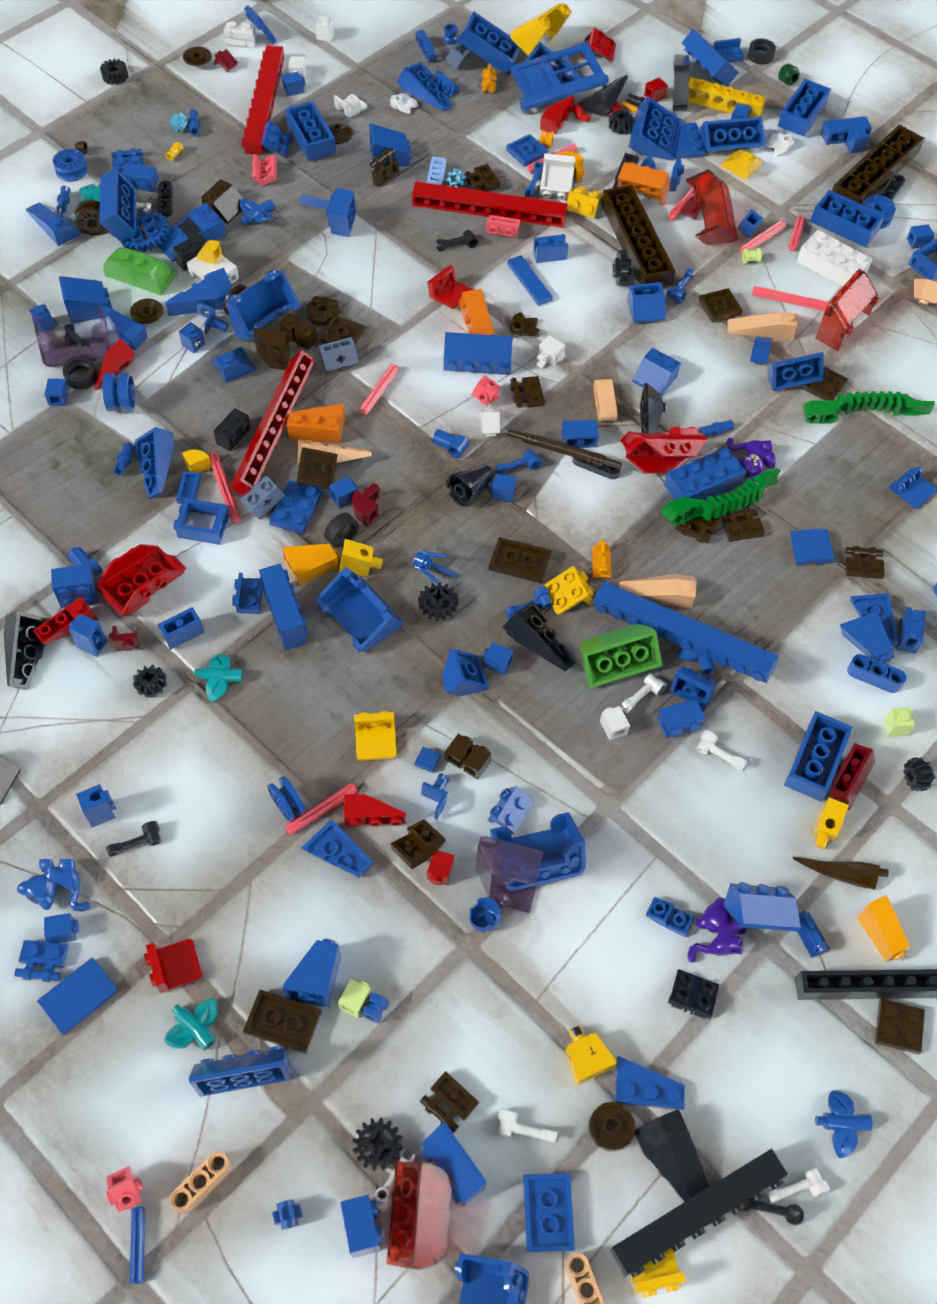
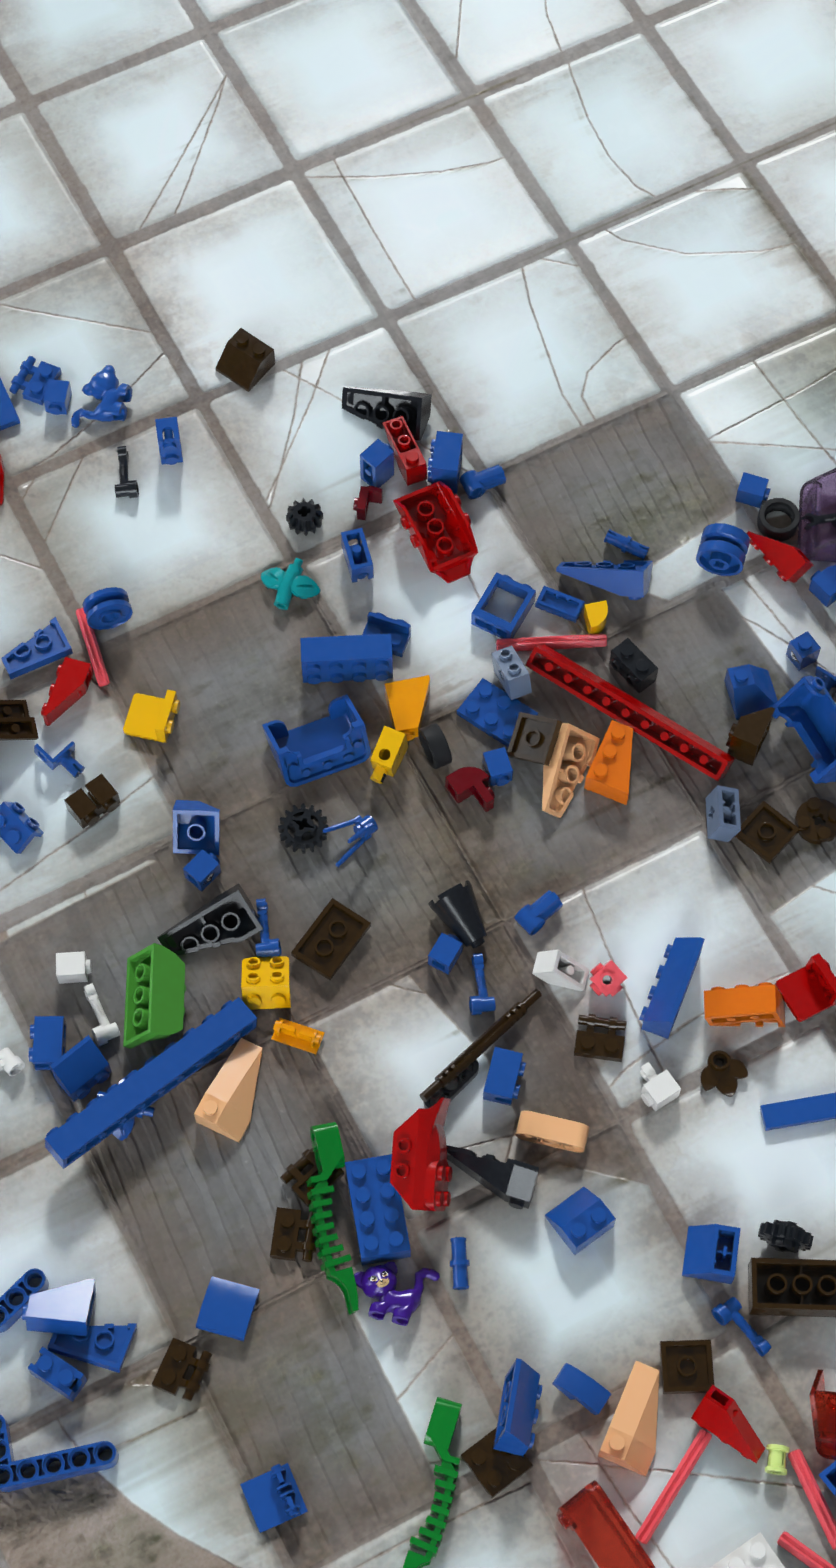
camera: 110 degrees right, 5 degrees up
(304, 331) = (774, 782): dark brown piece -> none
(379, 389) = (658, 854): coral axle -> none
(427, 759) = (108, 763): blue tile -> none
(743, 281) = (725, 1420): none -> red slope

